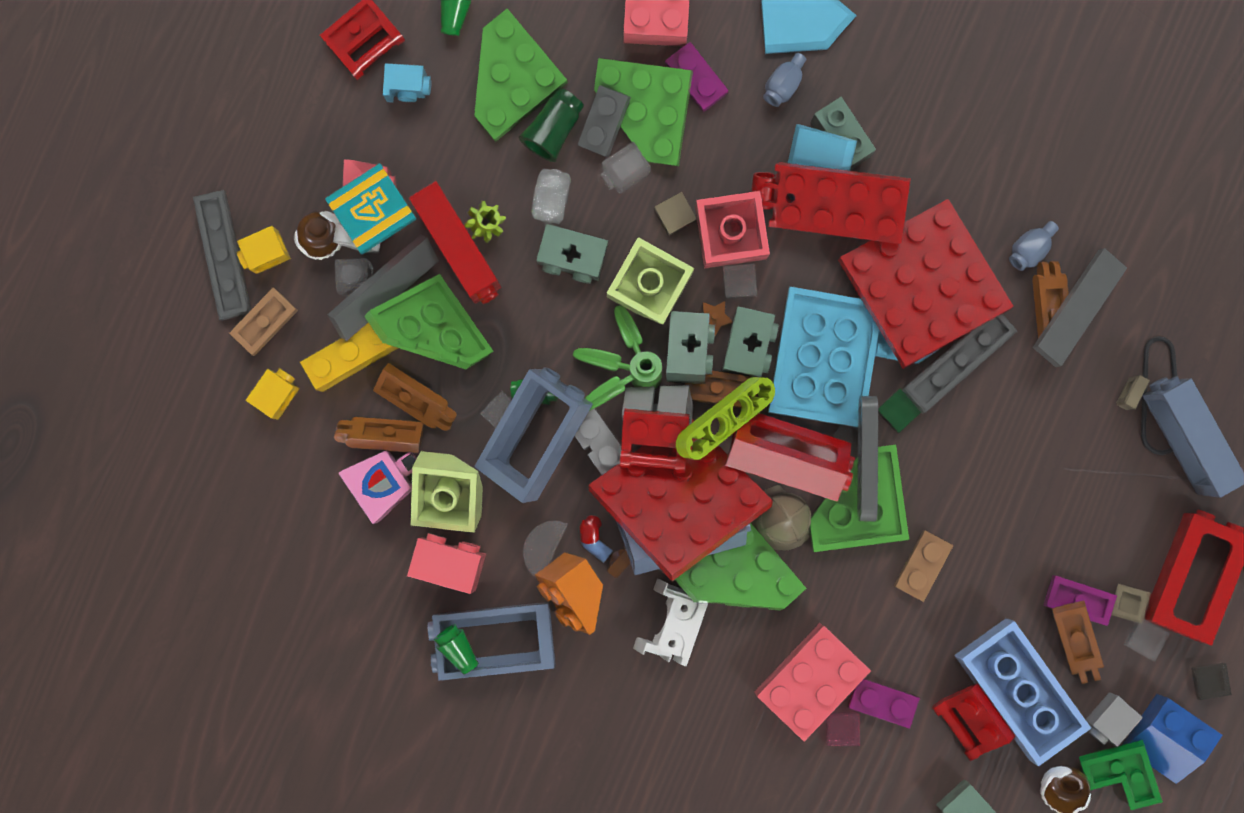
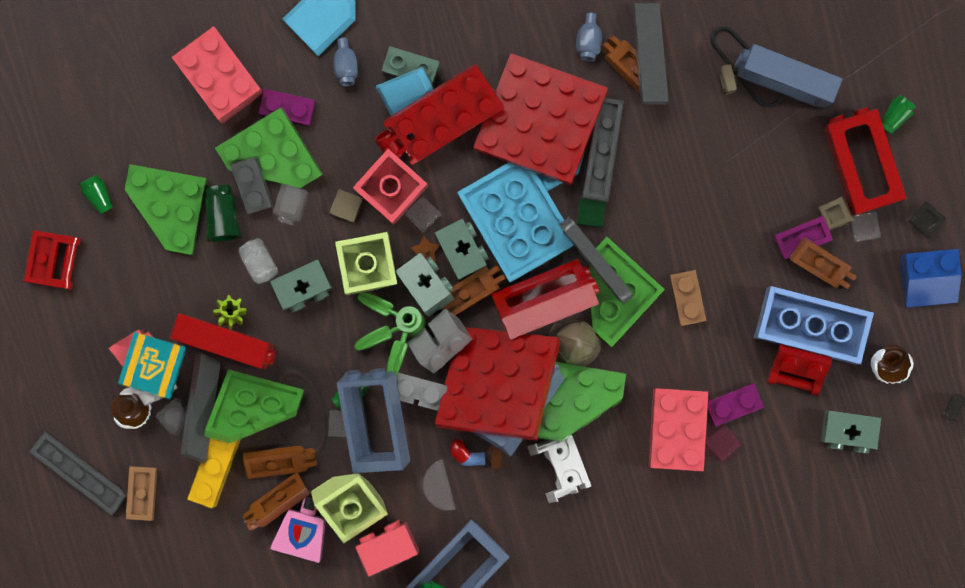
camera: 40 degrees left, 0 degrees up
(262, 250) = (102, 448): yellow brick -> none
(273, 393) = (186, 533): yellow brick -> none
(405, 82) = (104, 265): medium azure brick -> none
(573, 590) = (480, 498): orange slope -> none
(652, 429) = (449, 353): red plate -> none
(724, 413) = (489, 311): lime beam -> none
(1112, 720) = (885, 296): light grey brick -> none
(1126, 765) = (919, 316): green plate -> none

